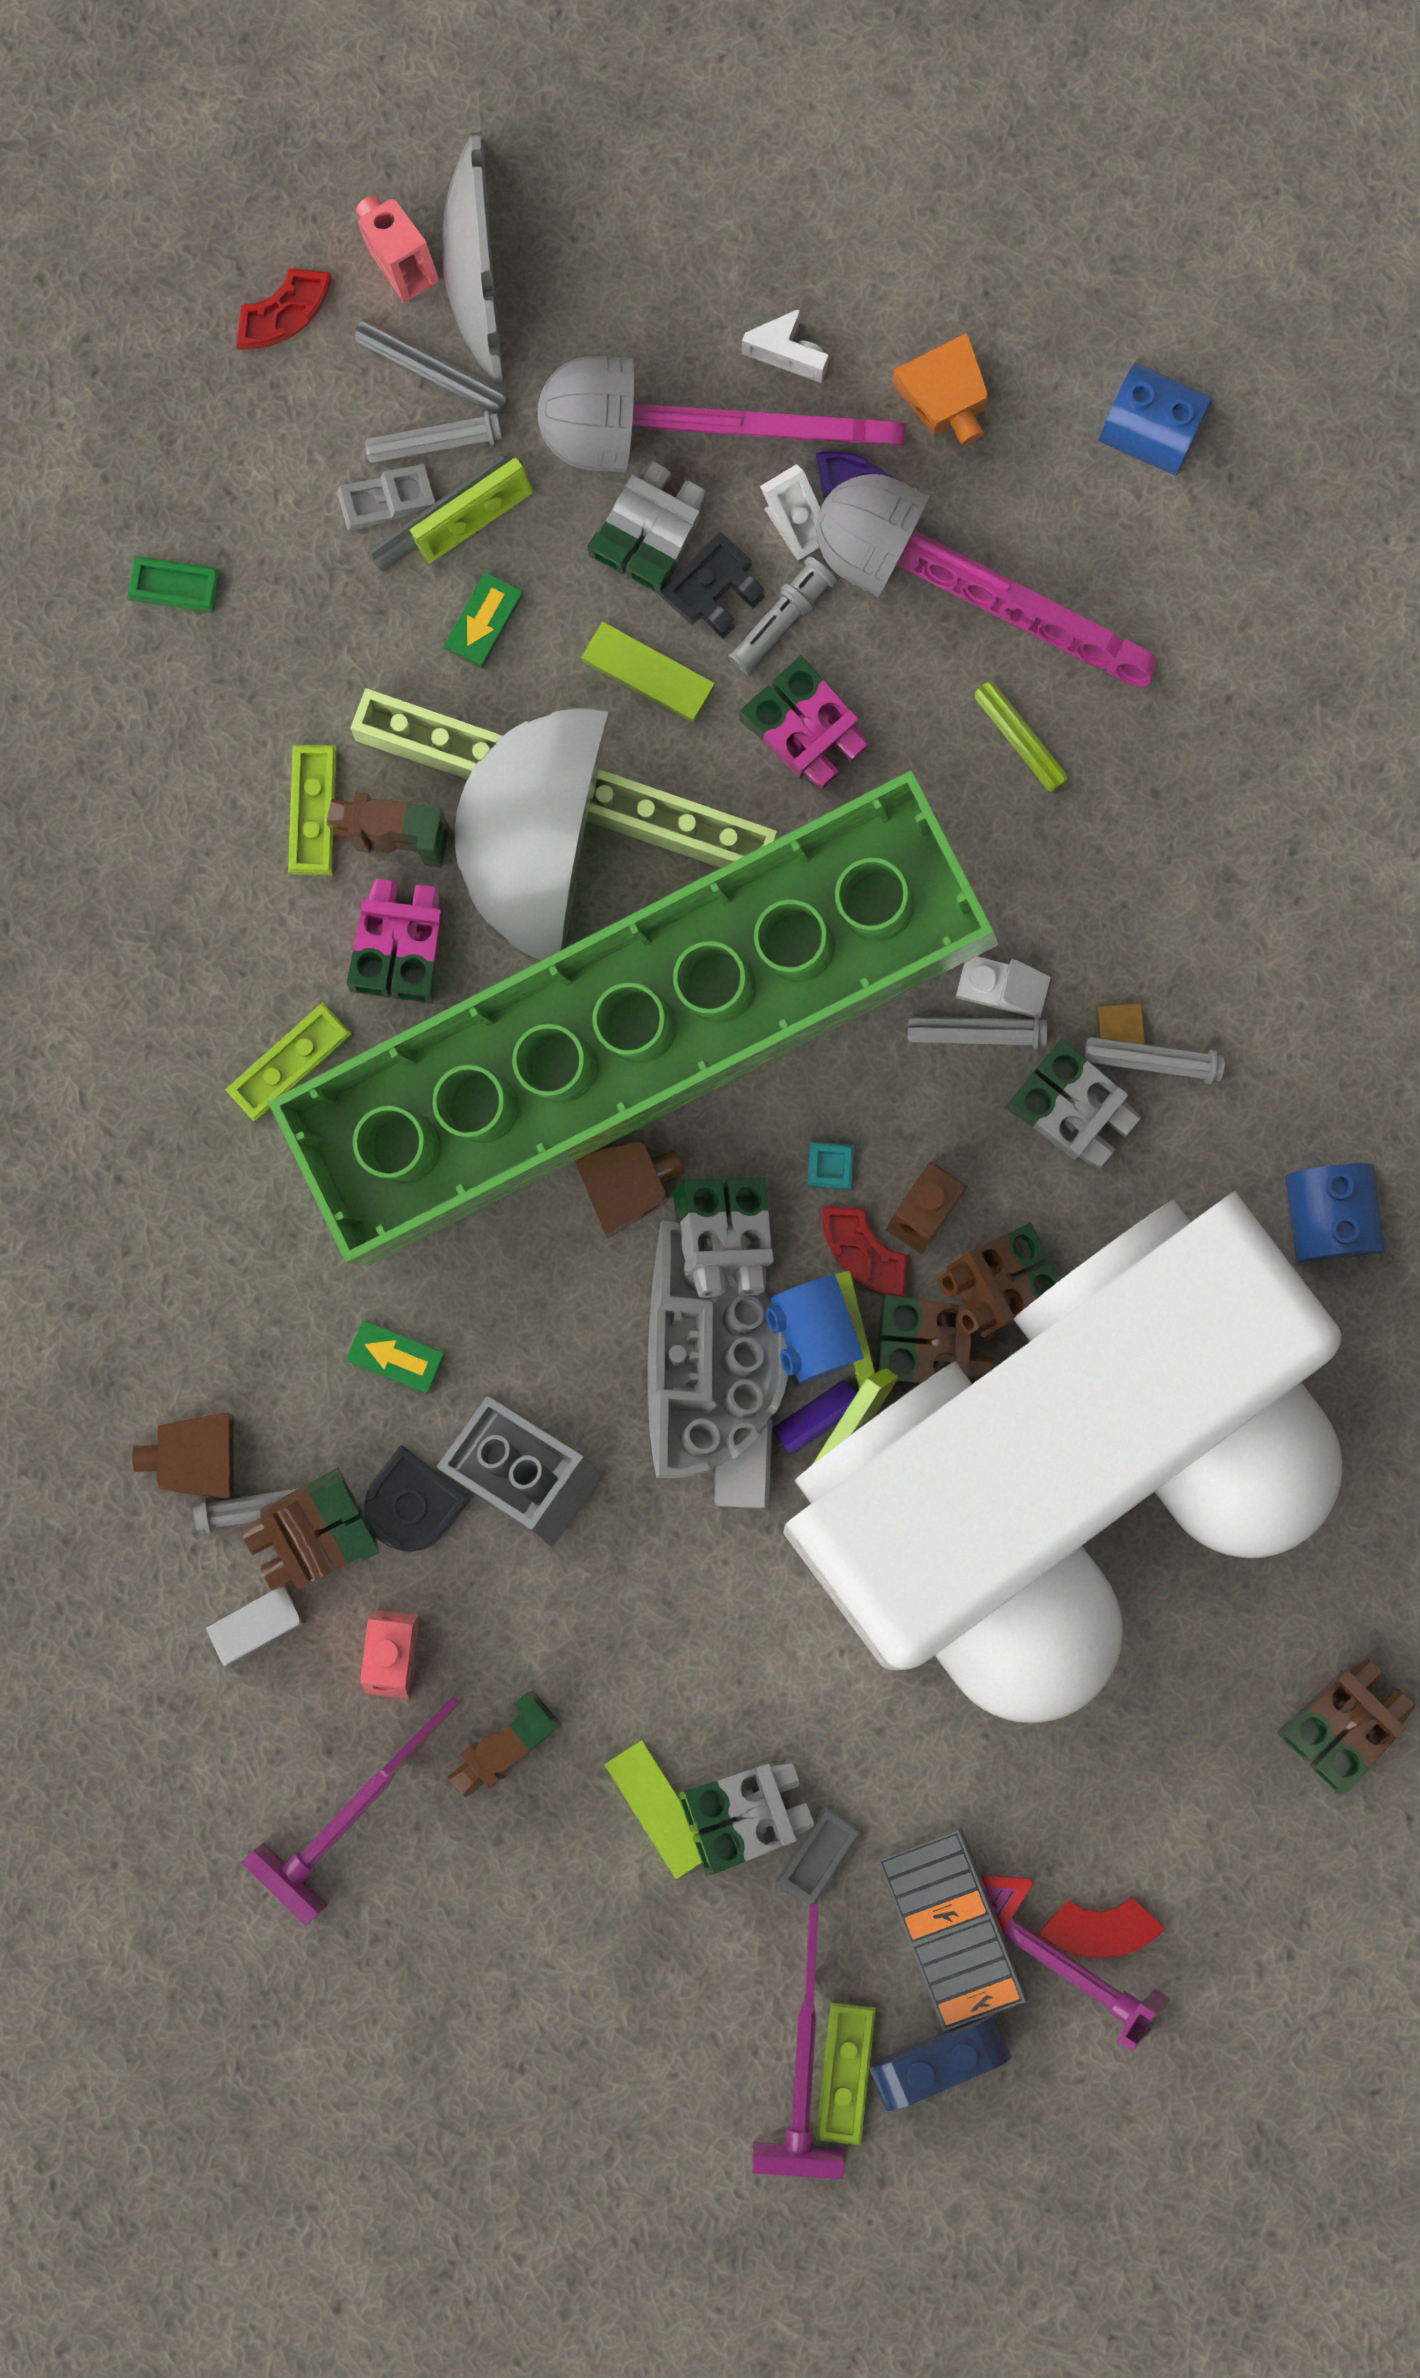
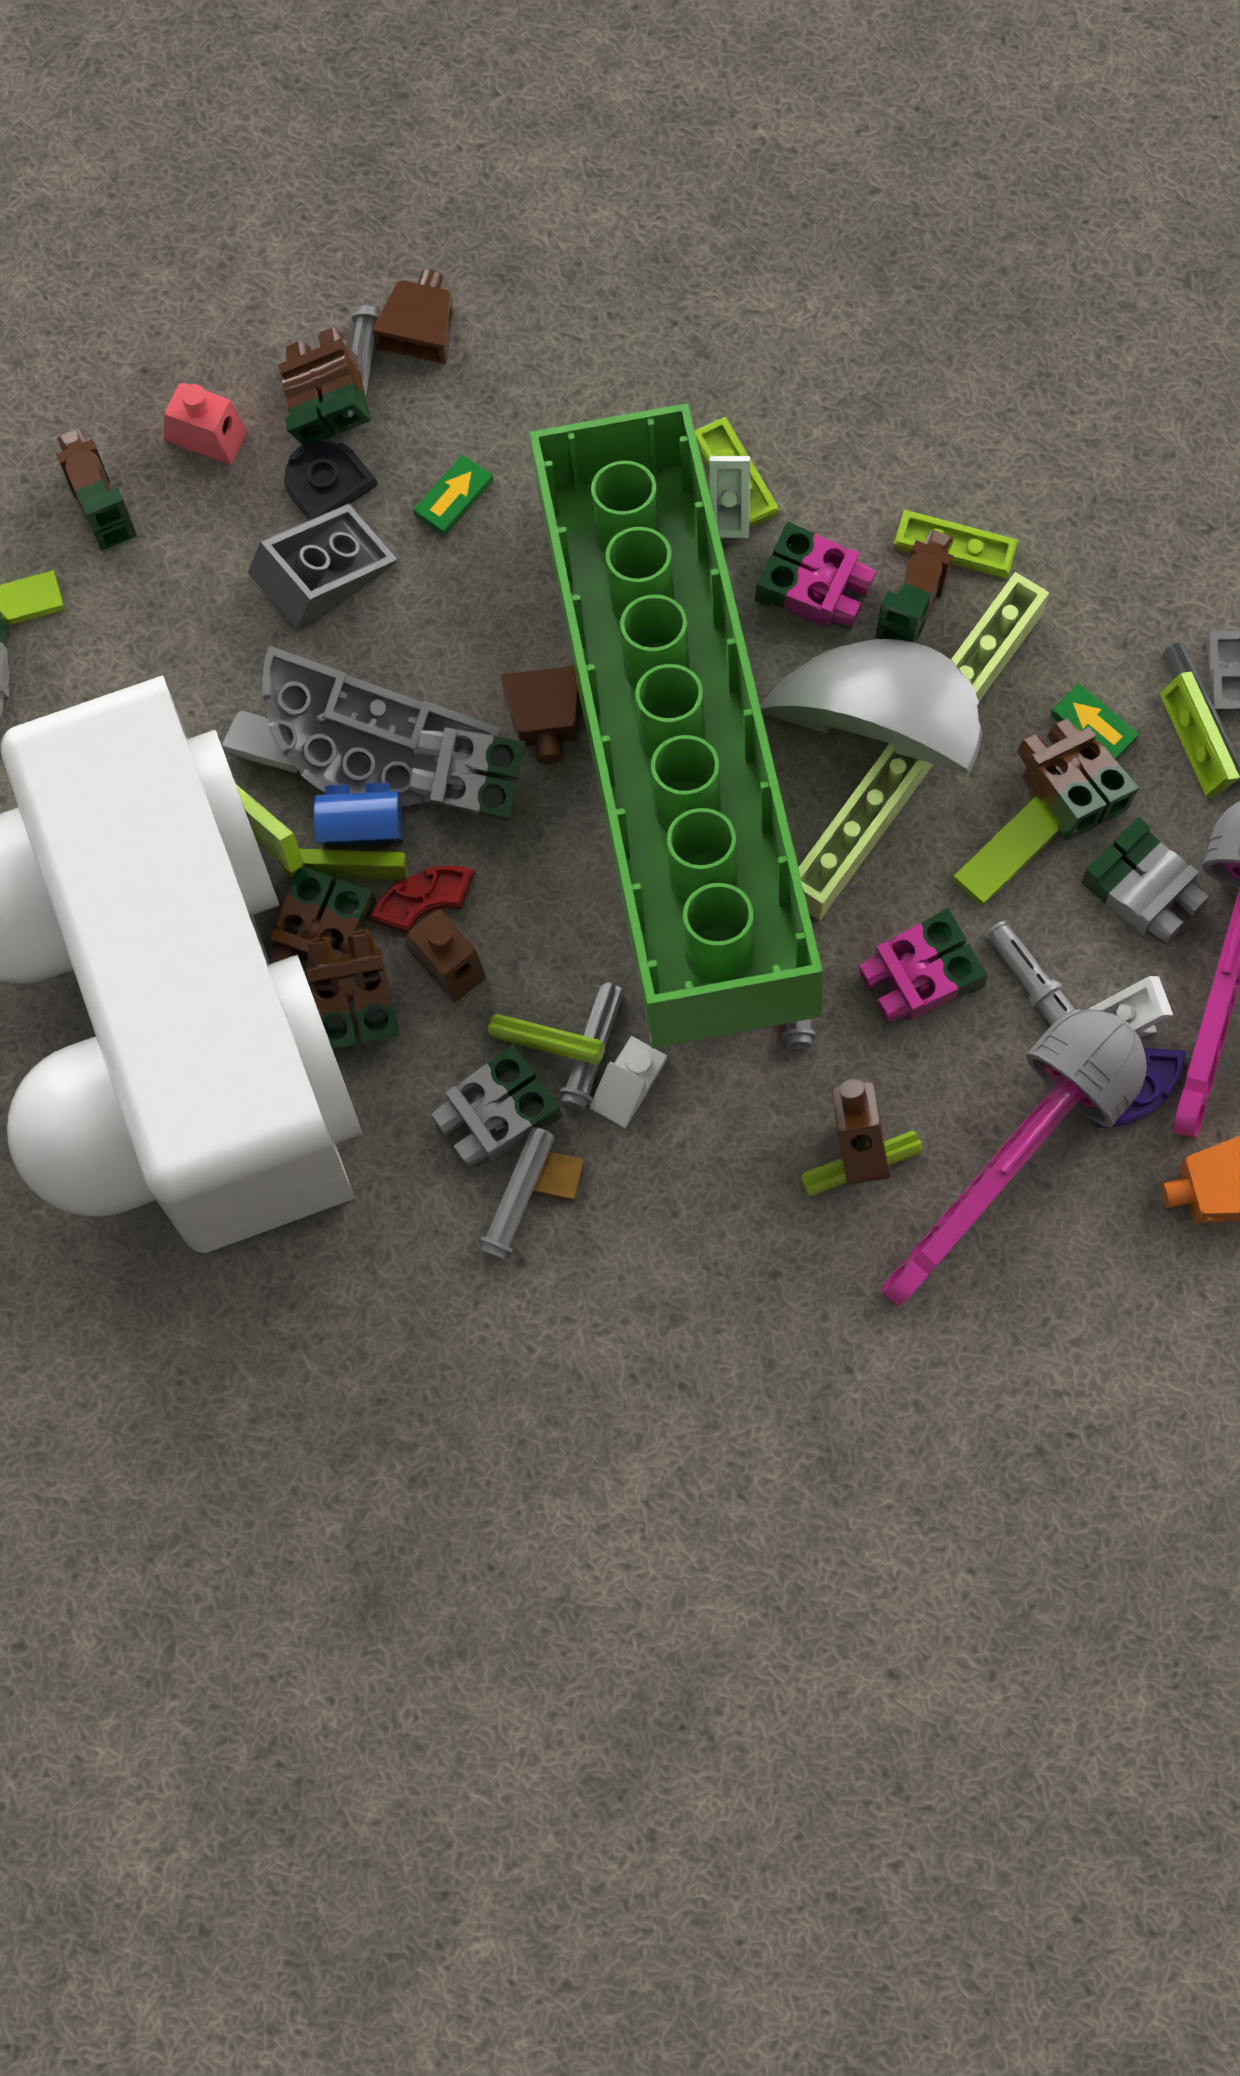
camera: 105 degrees right, 10 degrees down
(173, 584) = (1191, 481): green tile -> none
(254, 1626) = (263, 335): light grey slope -> none
(288, 1879) = (50, 309): magenta piece -> none
(330, 1046) = (730, 494): none -> white slope
(557, 619) = (1076, 778): none -> hips
(707, 578) = (1083, 919): black plate -> none
(814, 1417) = (287, 807): dark purple slope -> none
(830, 1166) = (508, 888): teal tile -> none
(987, 1076) = (546, 1039): none -> lime axle
(1001, 736) = (859, 1114): none -> reddish brown torso
(1155, 418) = (1149, 1376): blue brick -> none
(1334, 1212) = (322, 1321): blue brick -> none

